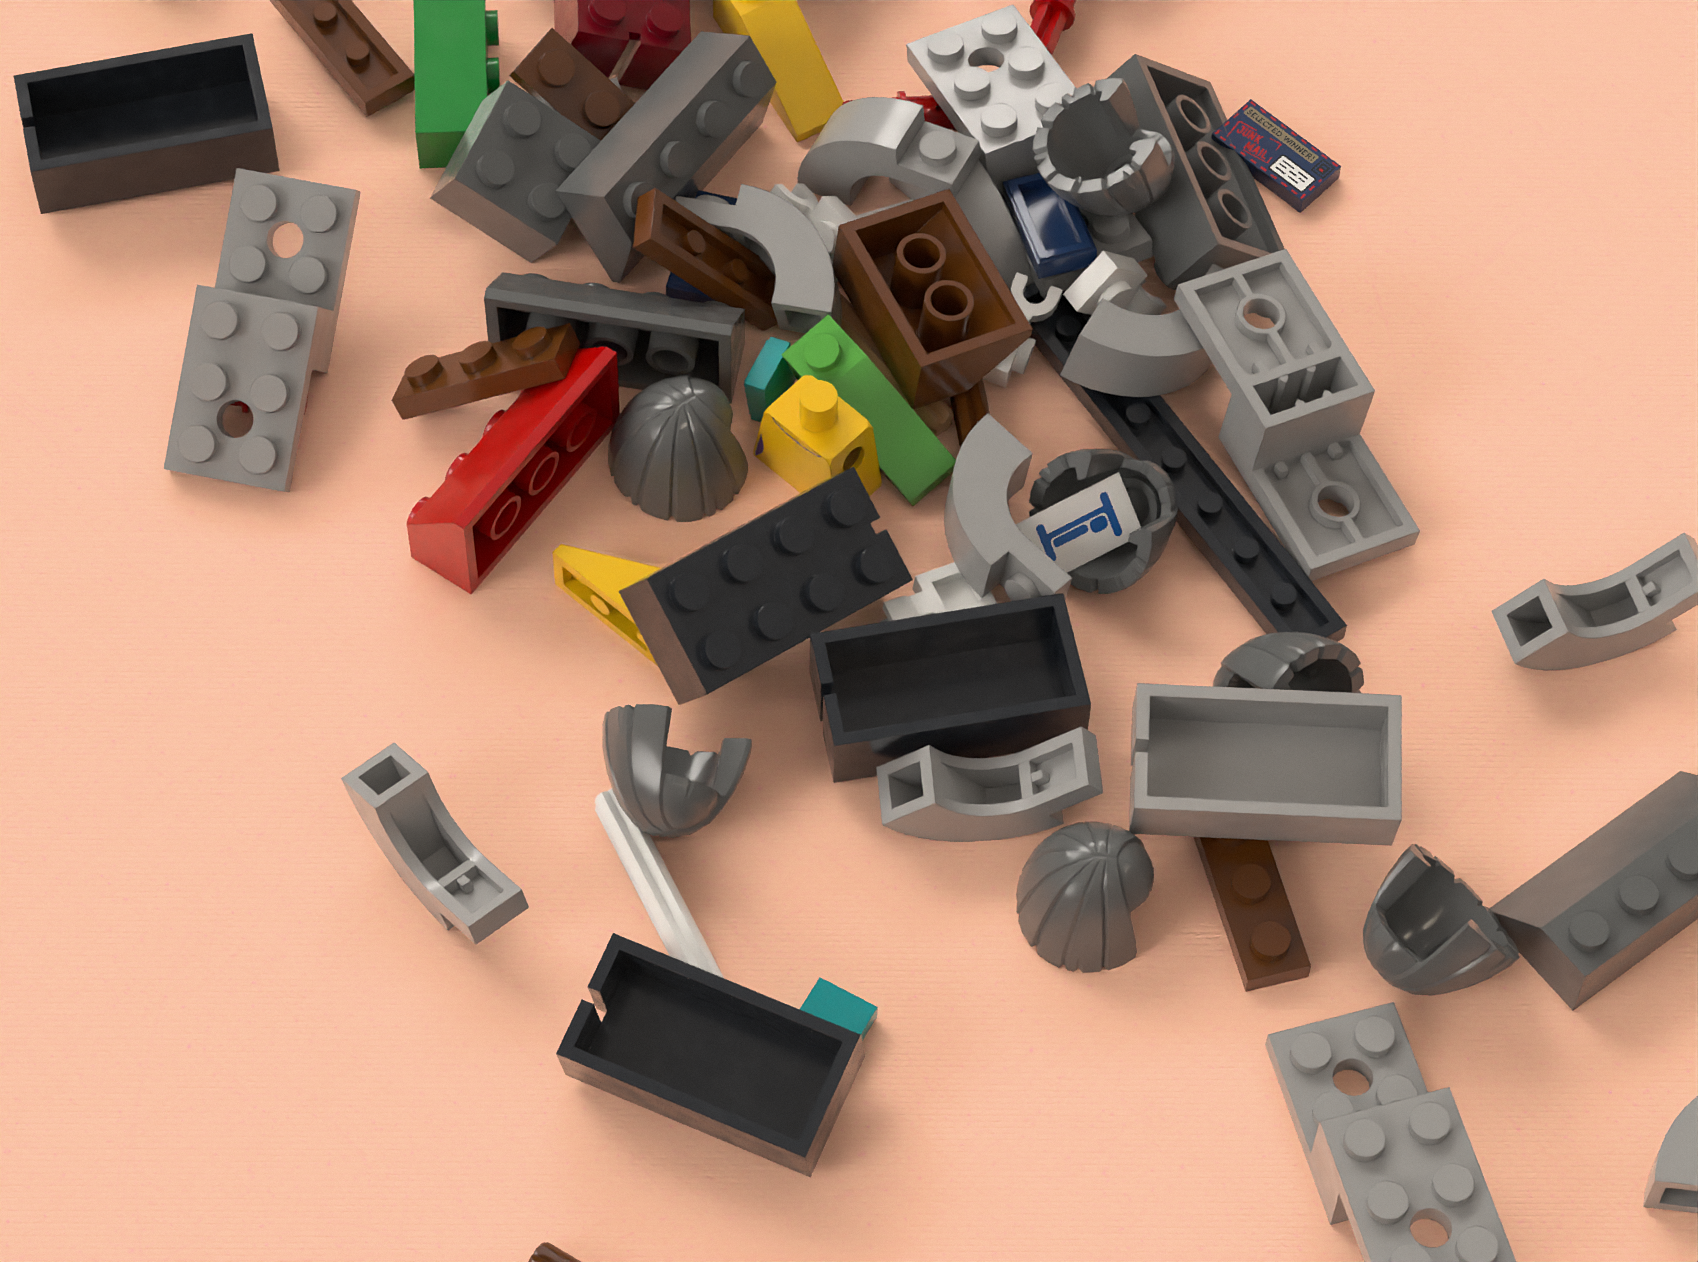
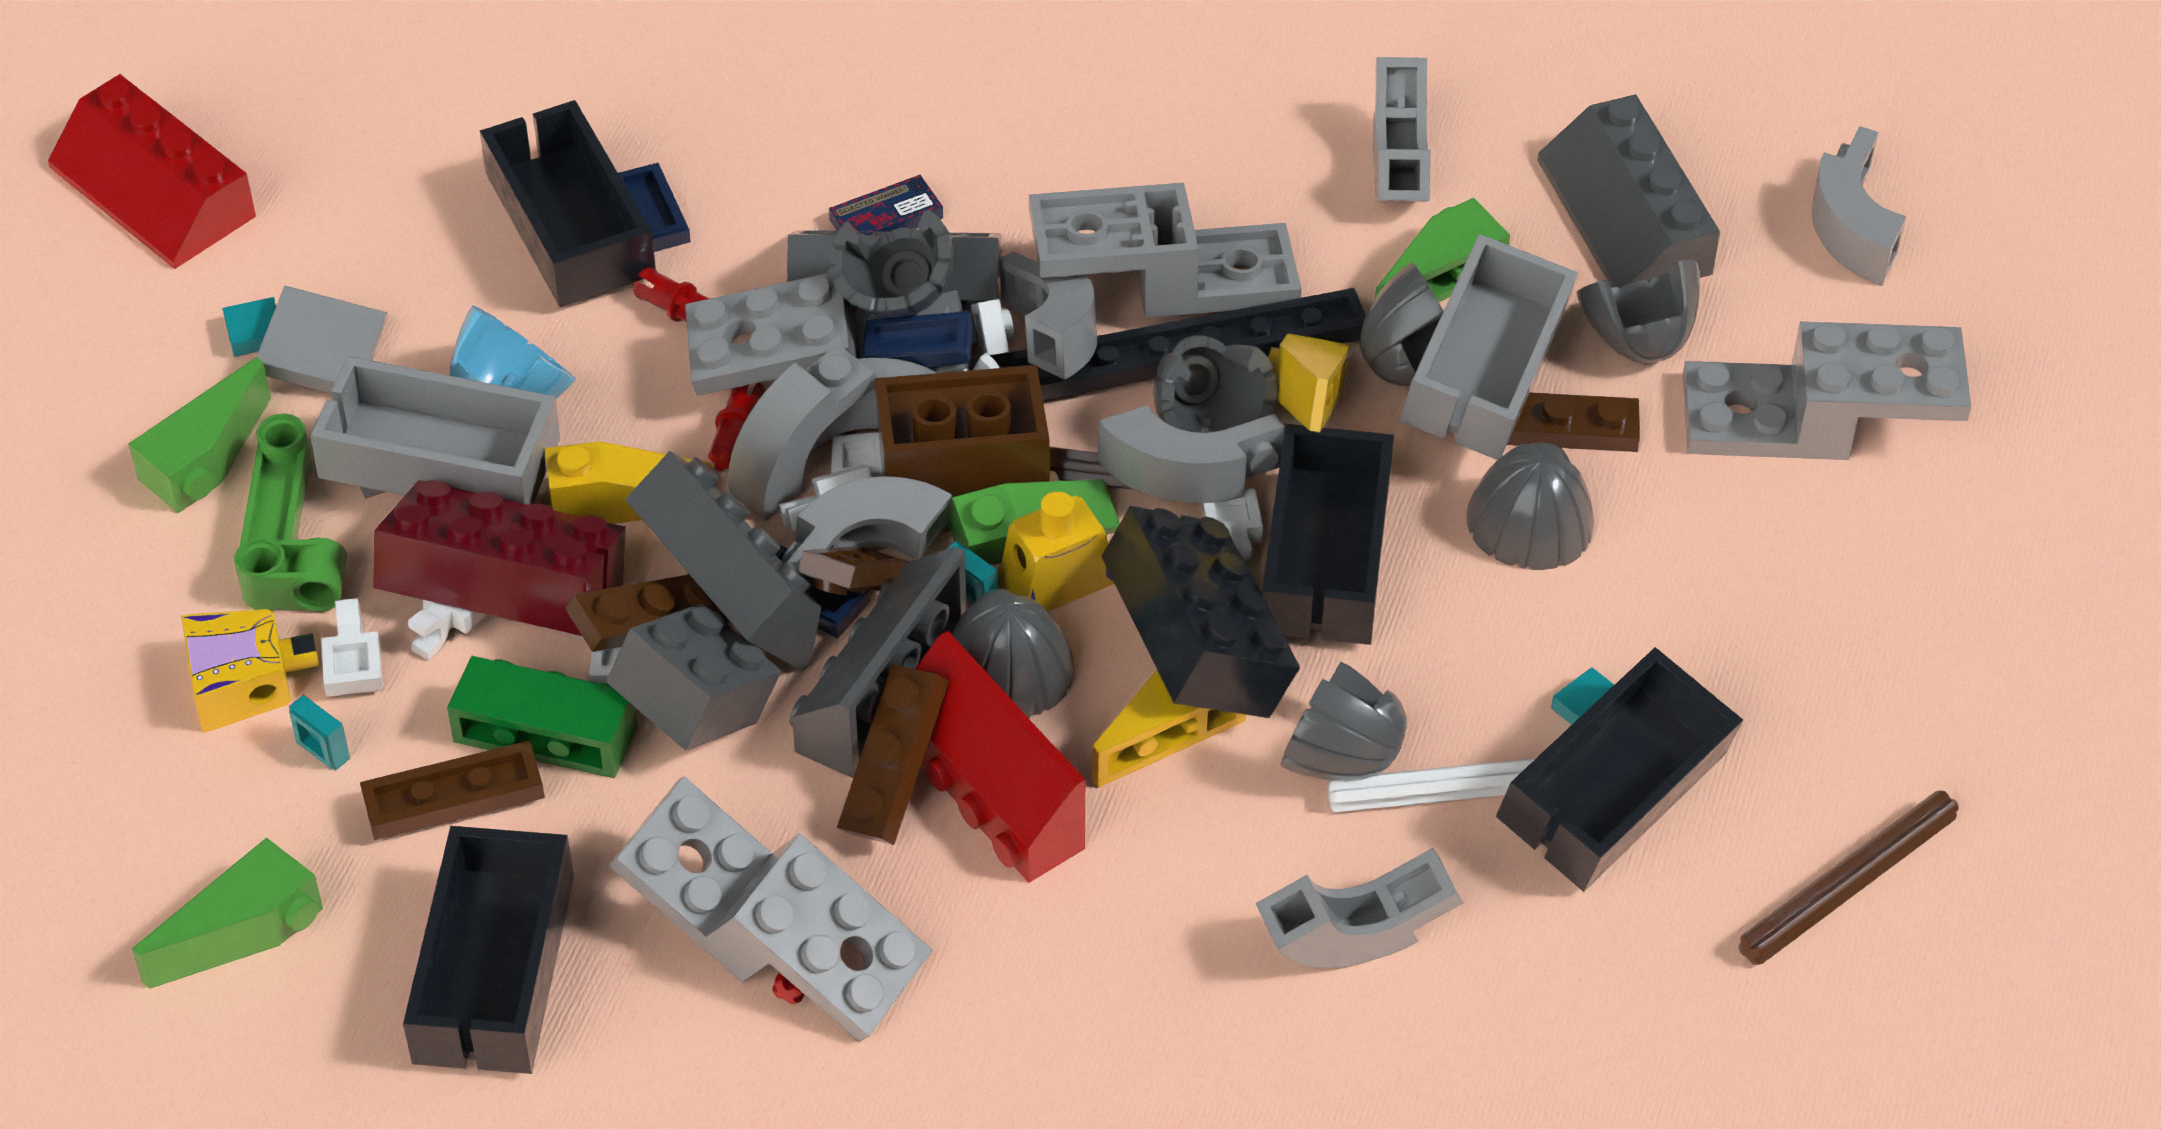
camera: 70 degrees left, 10 degrees down
(988, 798) = (1430, 527): light grey arch -> none
(1084, 524) = (1212, 399): white sticker -> none
(1165, 609) = (1309, 377): none -> yellow slope
(1447, 707) = (1445, 245): none -> bright green slope

